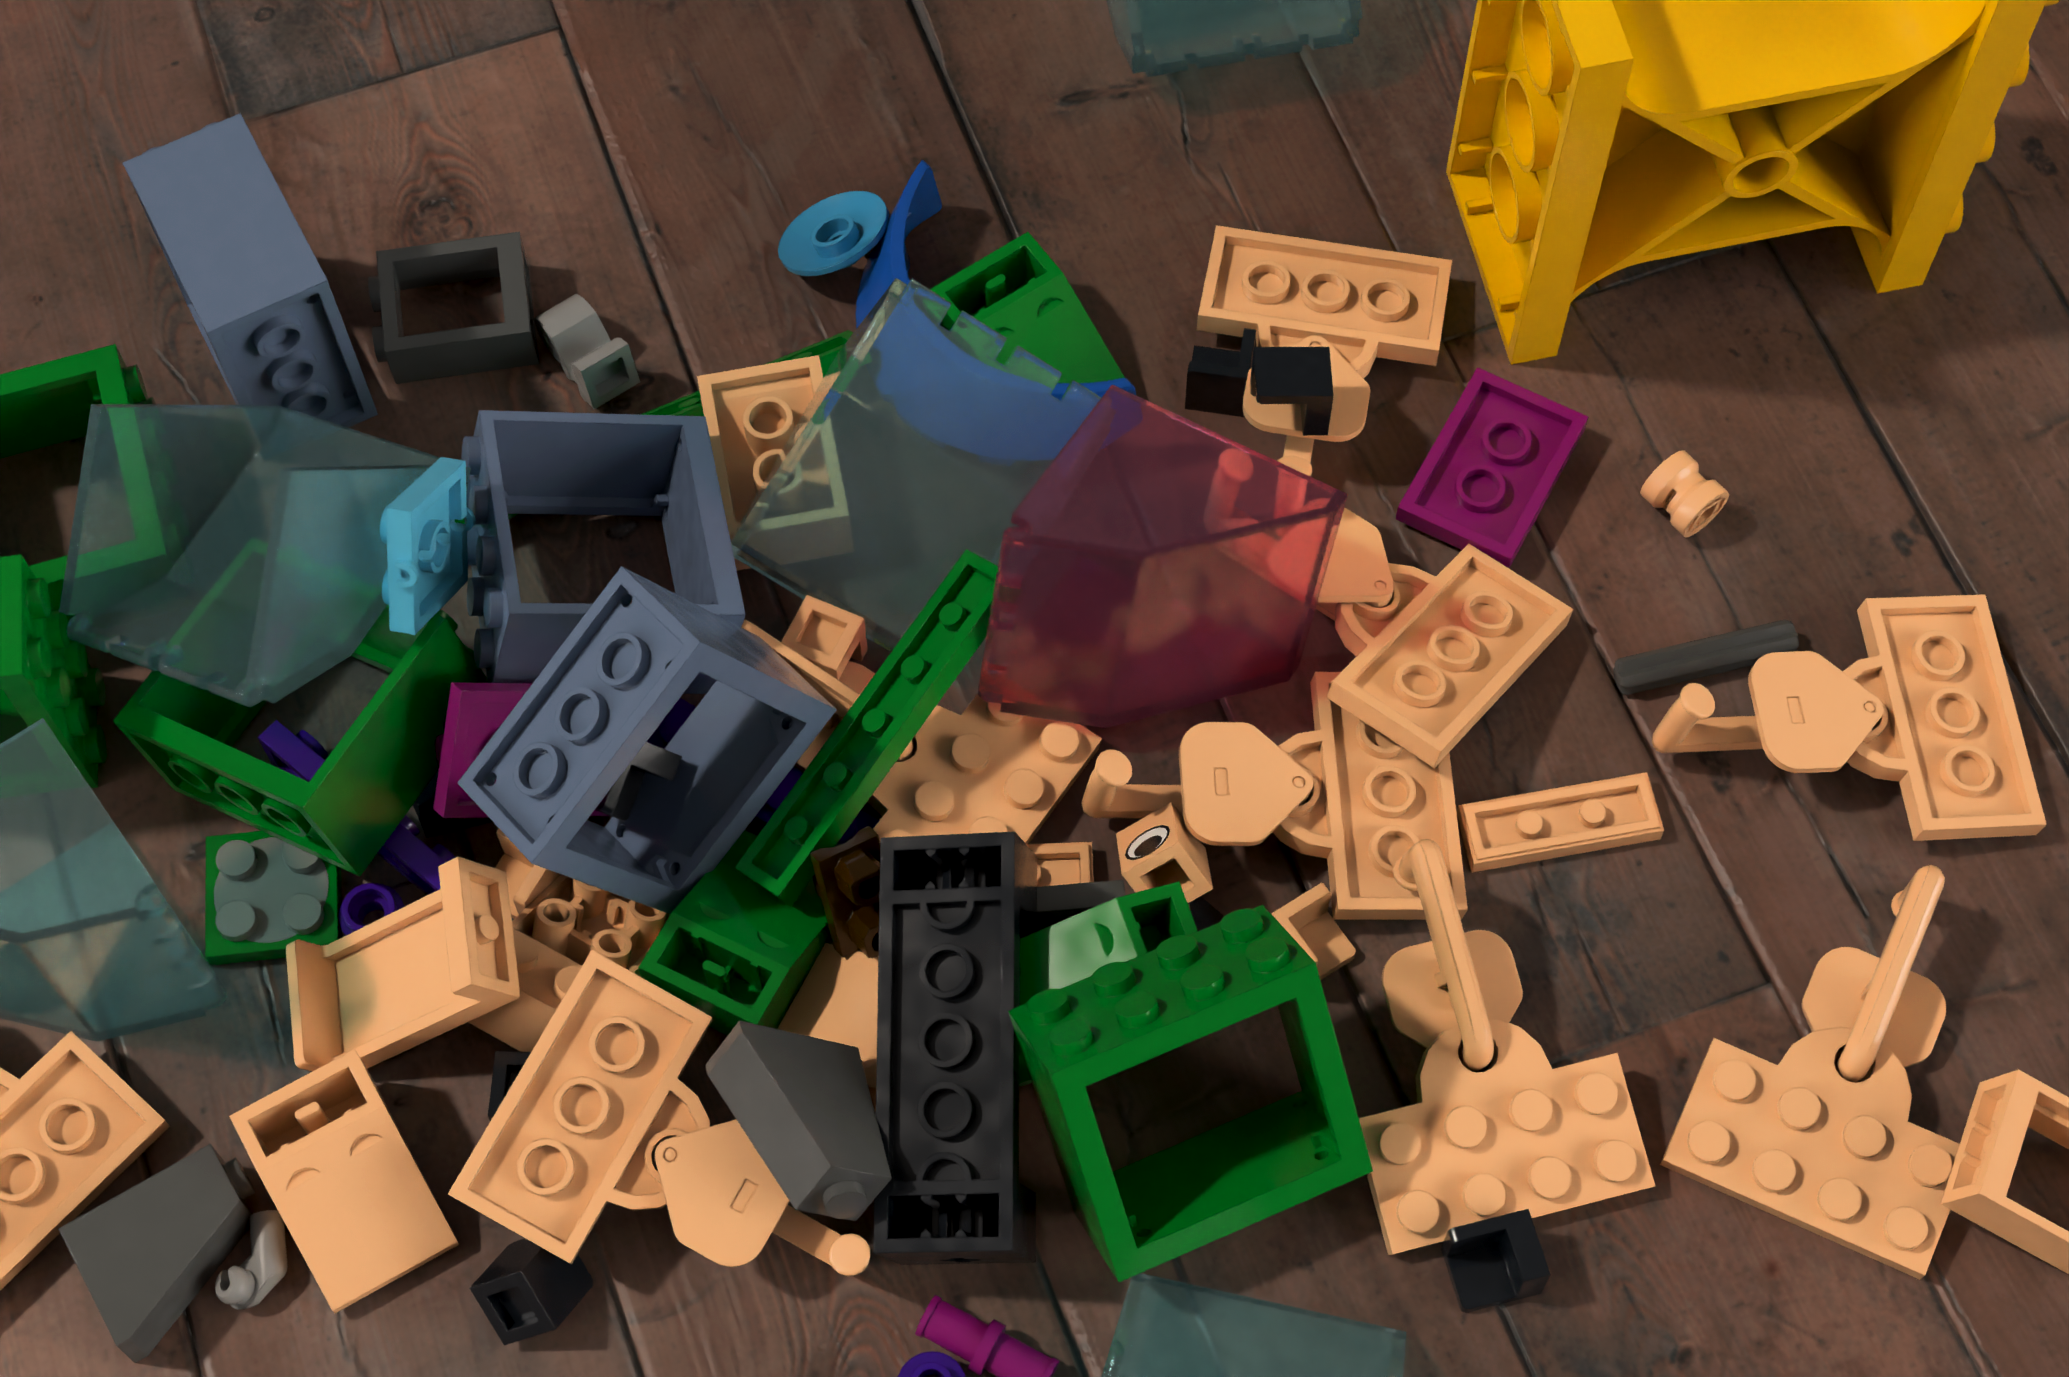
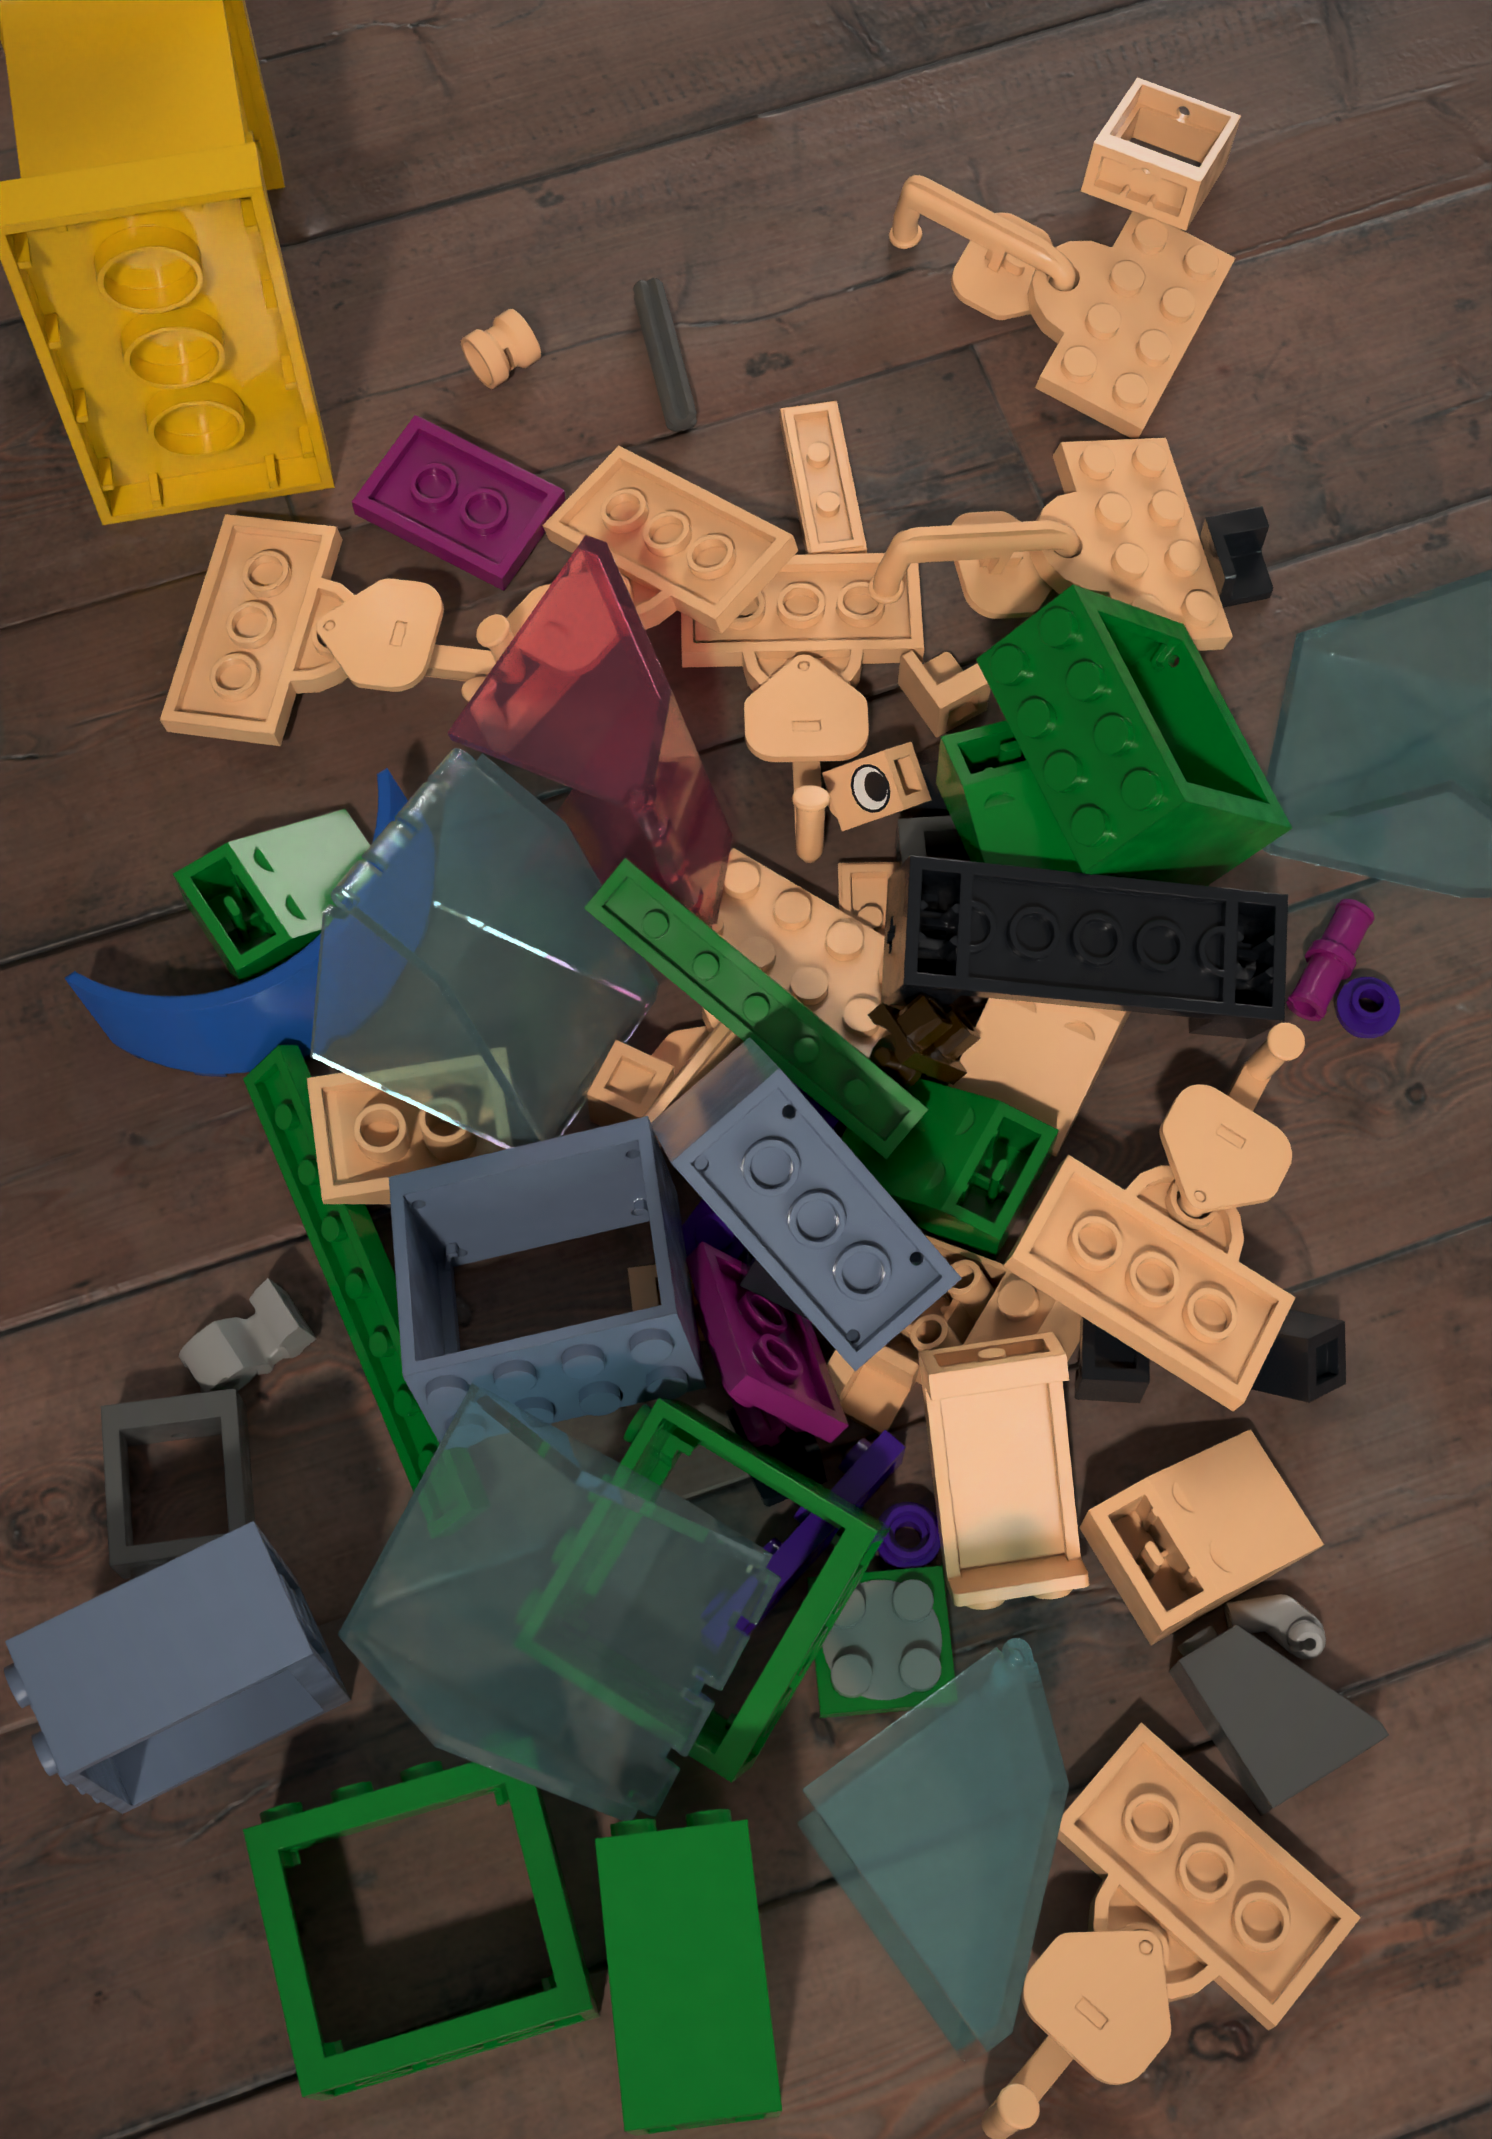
camera: 90 degrees left, 5 degrees up
(426, 545) = (590, 1403): medium azure plate -> none
(805, 1115) = (1171, 1066): dark grey slope -> none
(833, 233) = (105, 1085): dark azure dish -> none
(1219, 377) = (335, 723): black panel -> none
(1295, 377) = (396, 622): black panel -> none
(1934, 708) = (740, 208): light nougat plate -> none

